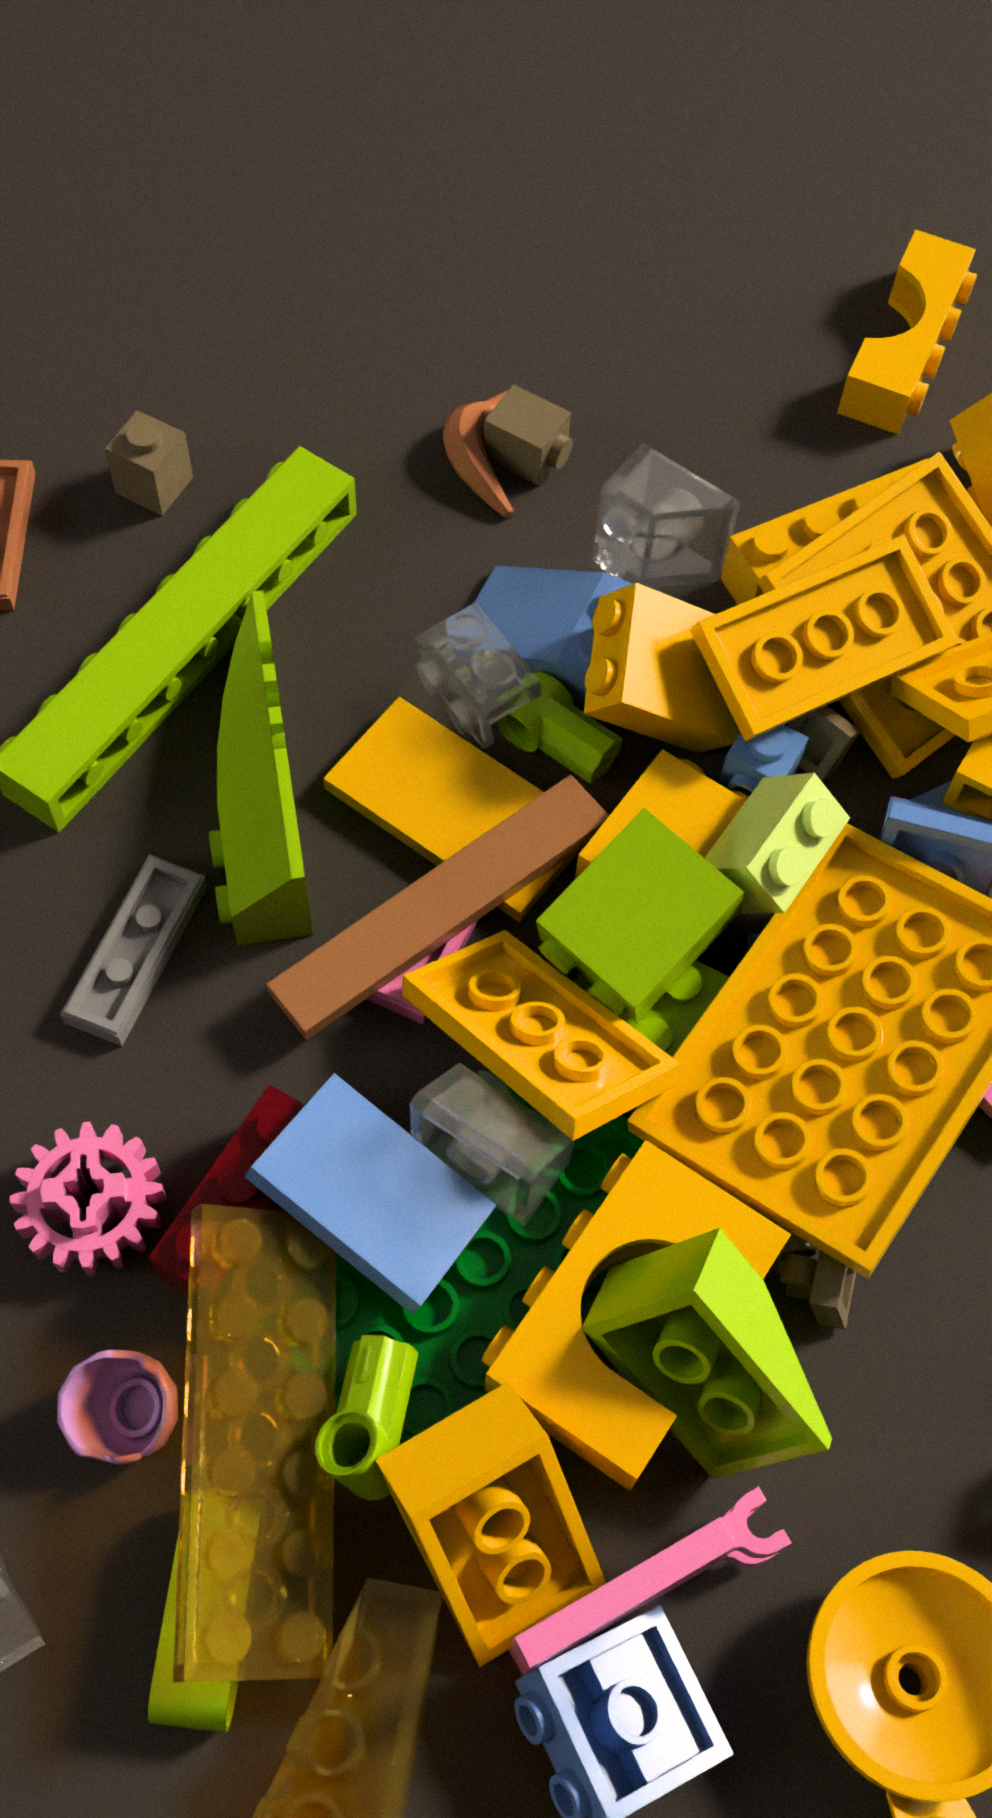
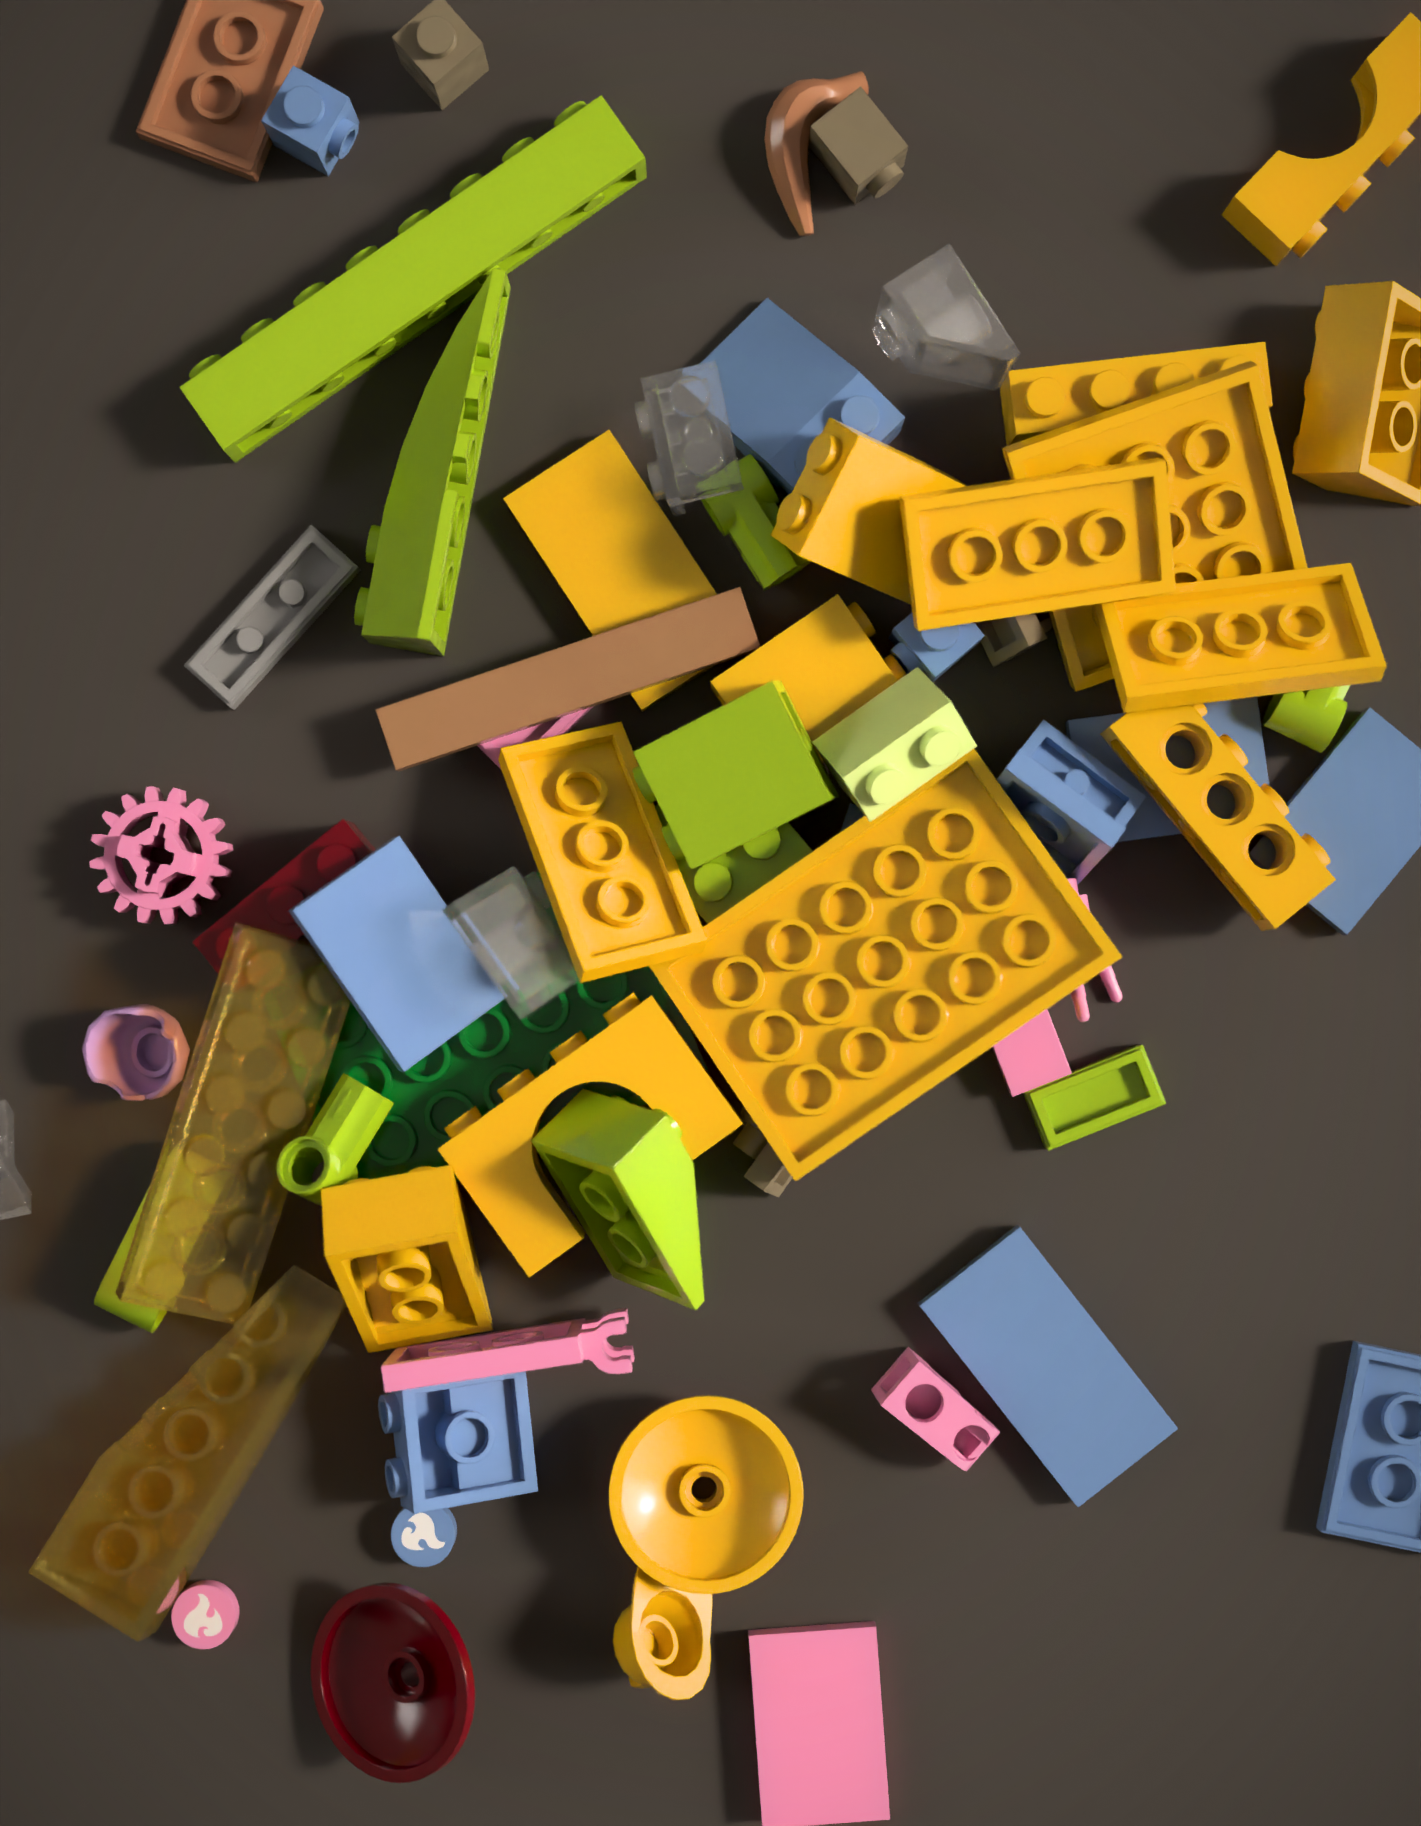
camera: 25 degrees right, 25 degrees up
(51, 539) = (311, 121): none -> medium blue brick

